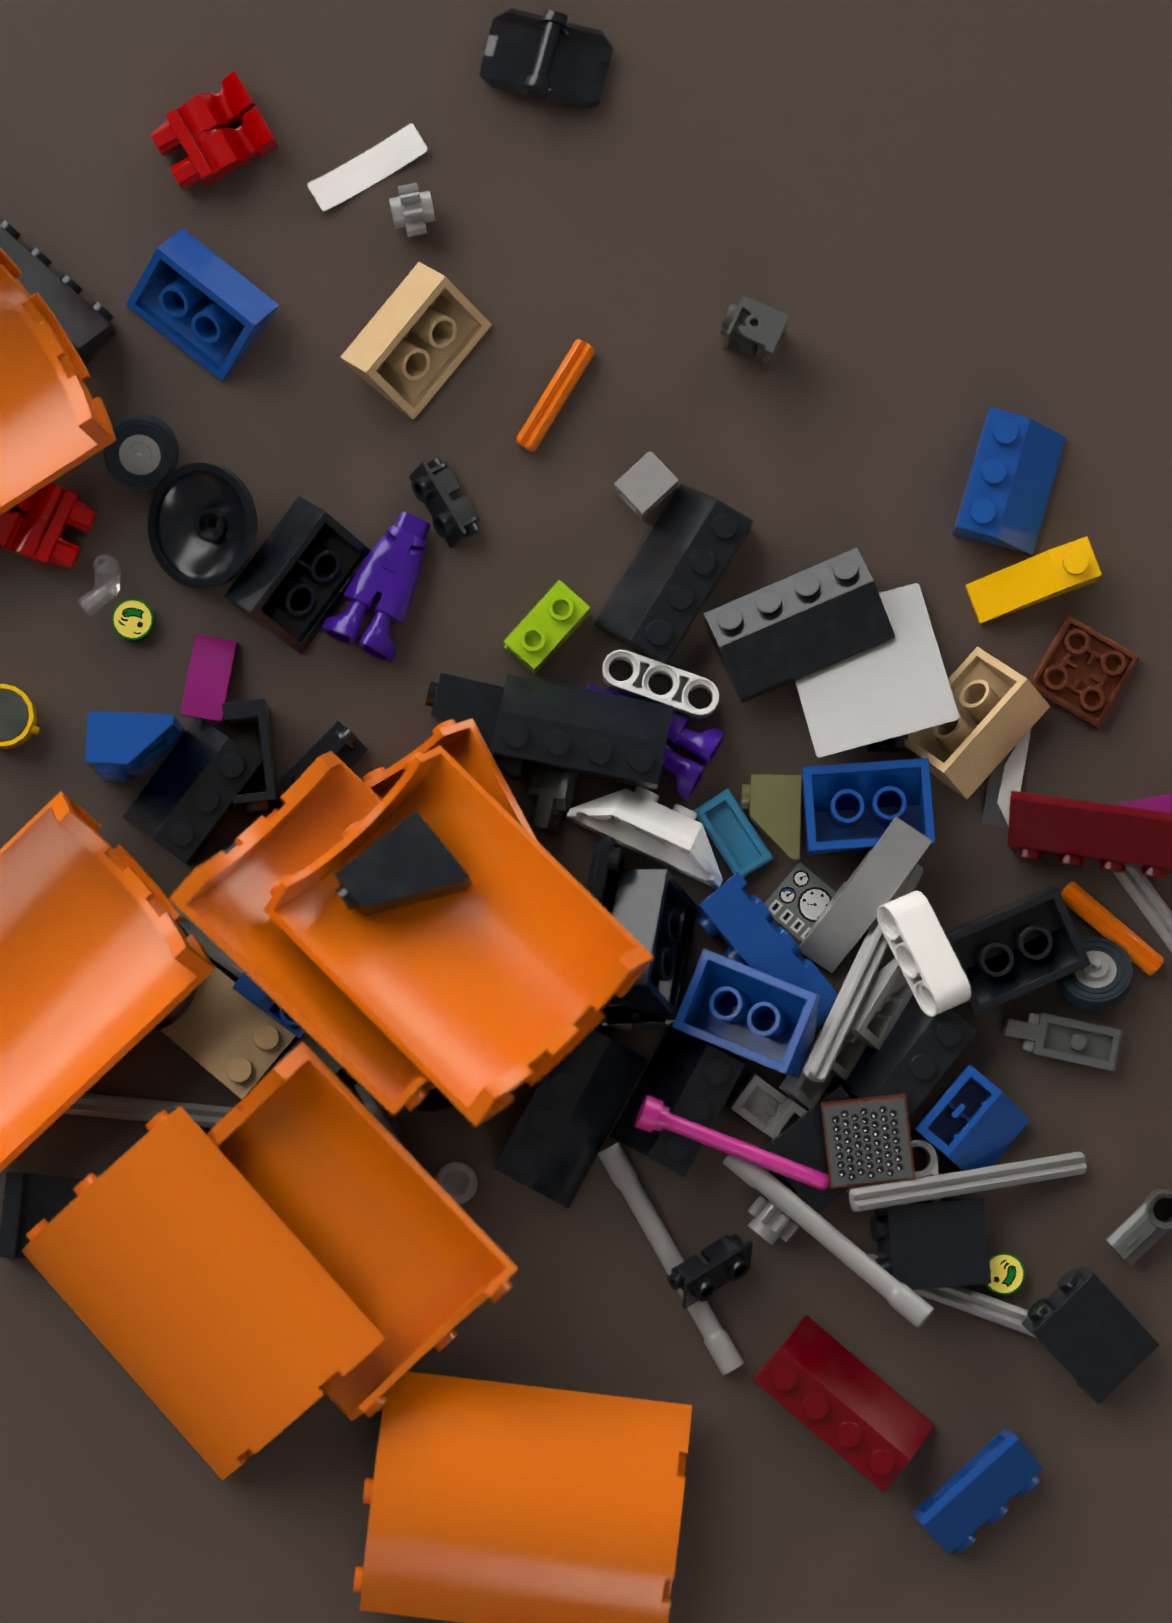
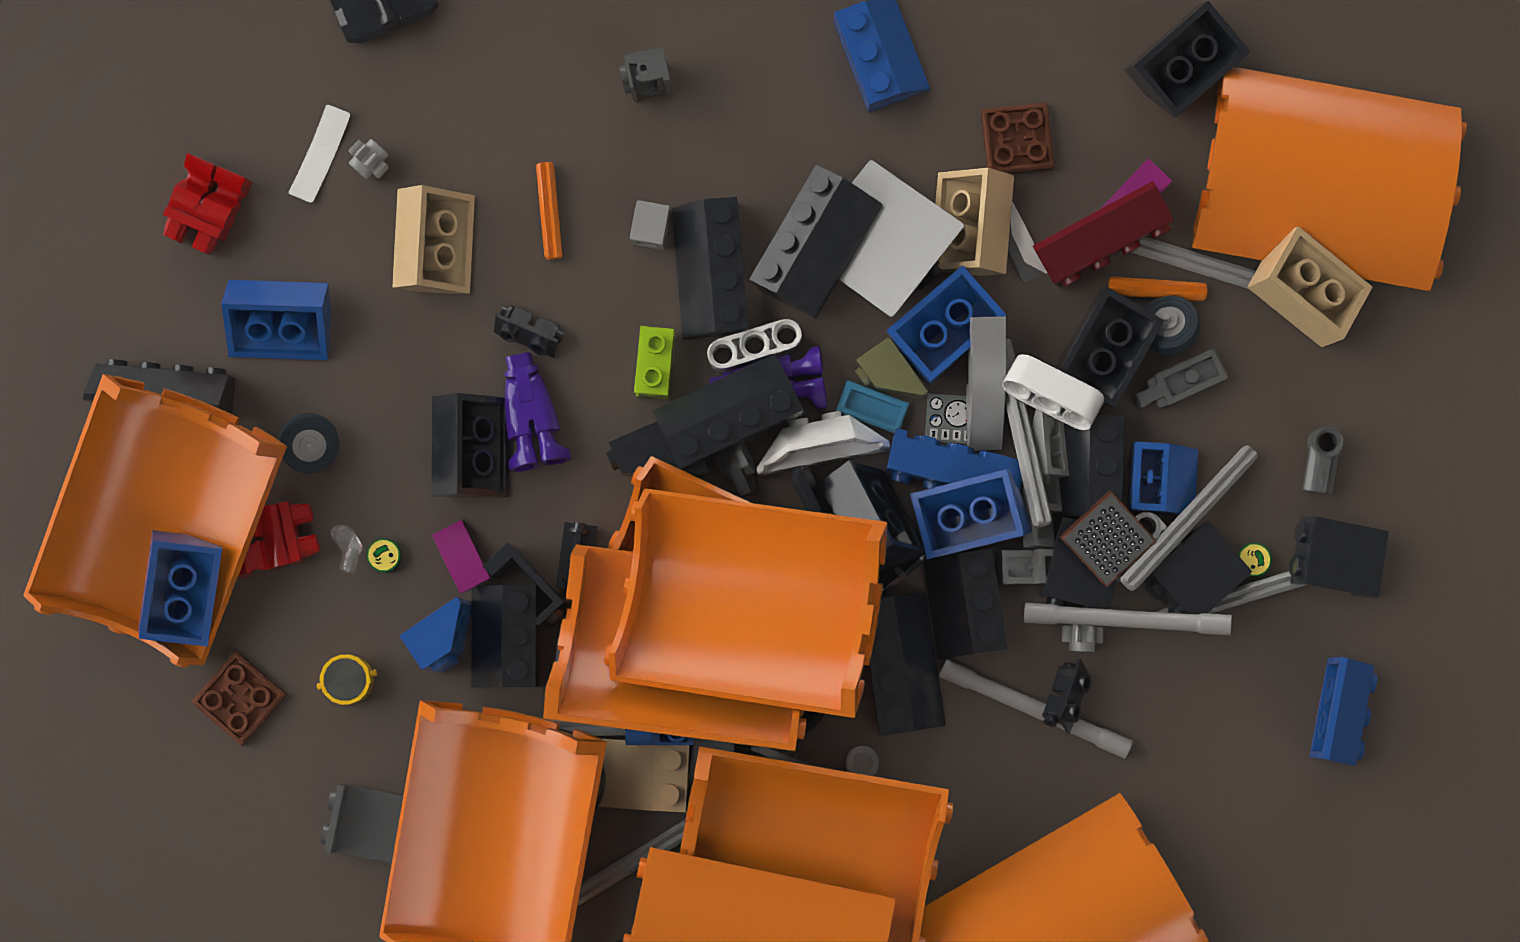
camera: 25 degrees left, 0 degrees up
(185, 520) = (371, 468): black dish -> none
(401, 870) = (680, 587): black slope -> none
(657, 1117) = (960, 624): dark pink piece -> none
(844, 1403) = (1215, 718): dark red slope -> none
(1034, 580) = (943, 103): yellow slope -> none

